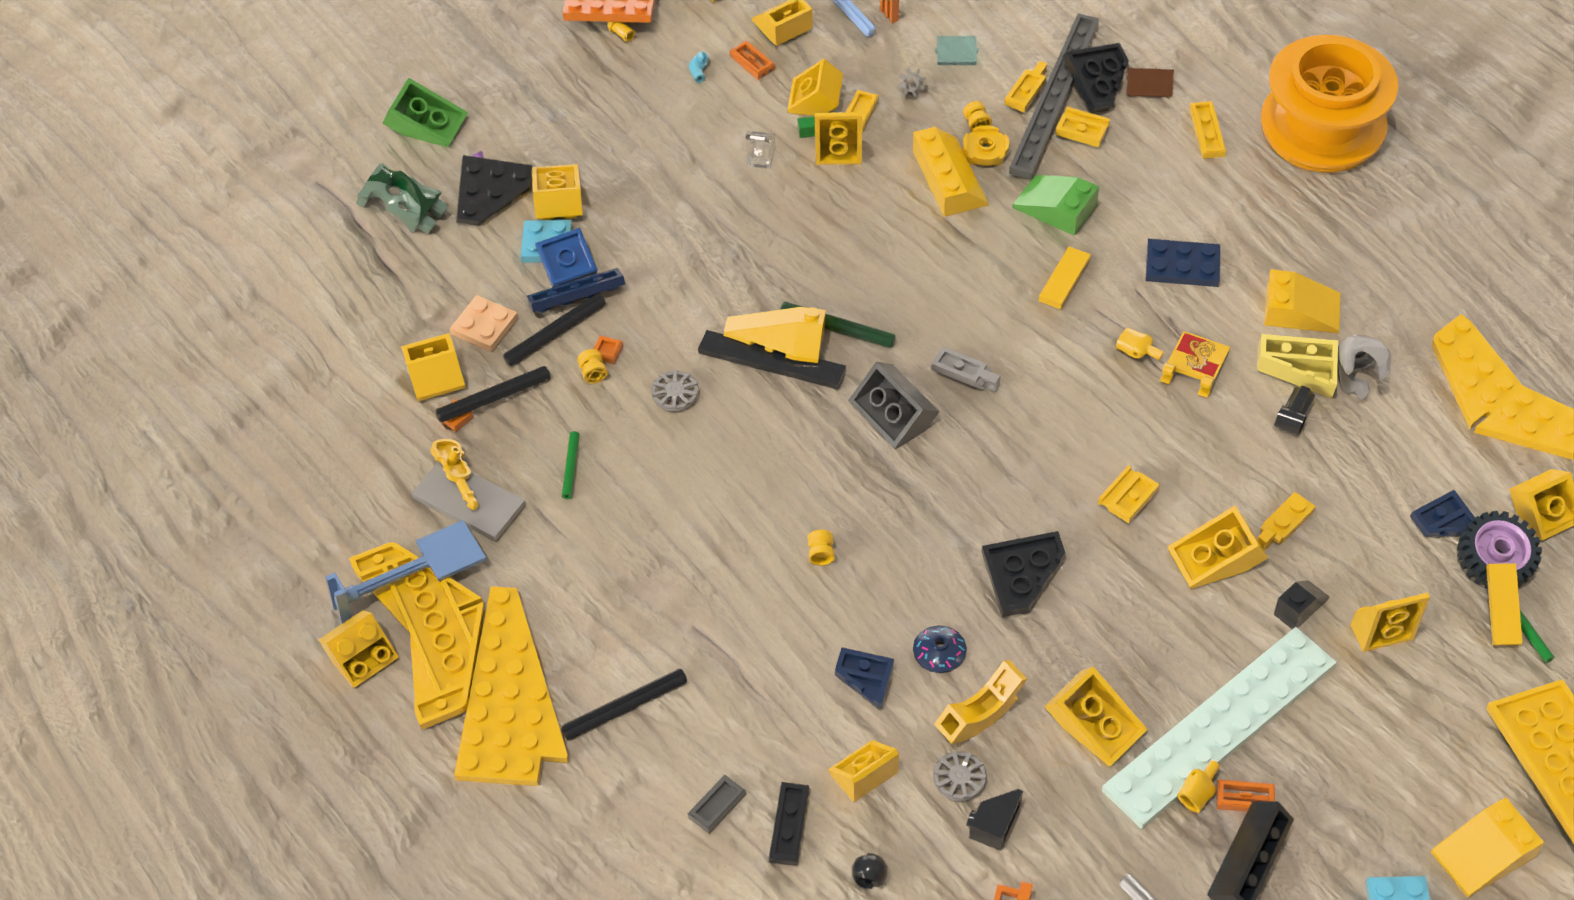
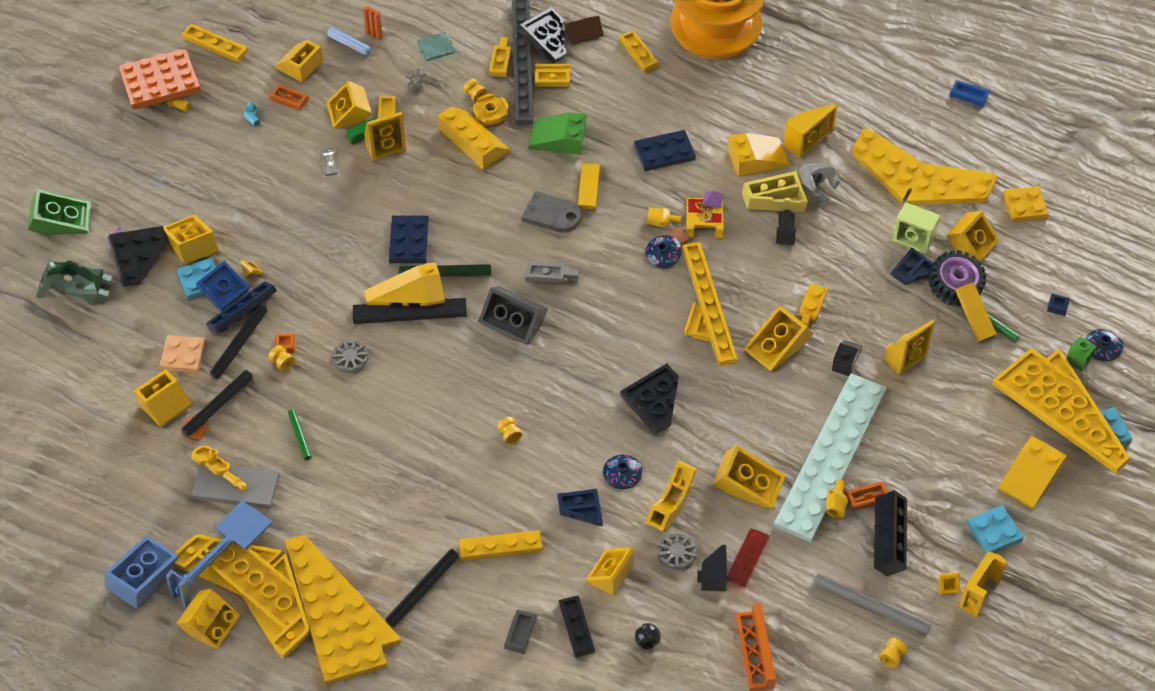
camera: 25 degrees left, 0 degrees up
(302, 563) = (140, 571): none -> medium blue slope
(609, 247) = (250, 268): none -> yellow slope
(743, 687) = (500, 545): none -> yellow plate
(812, 272) = (408, 239): none -> dark blue plate
(1002, 295) = (552, 213): none -> flat silver tile
(1048, 818) = (747, 557): none -> clear red tile
(1122, 396) = (665, 257): none -> dark blue dish
(1146, 378) = (680, 235): none -> nougat tile
(1147, 476) = (709, 304): none -> yellow tile
(1216, 343) = (713, 199): none -> medium lavender slope
(1383, 292) = (808, 129): none -> yellow slope
(1470, 465) = (916, 227): none -> yellowish green brick

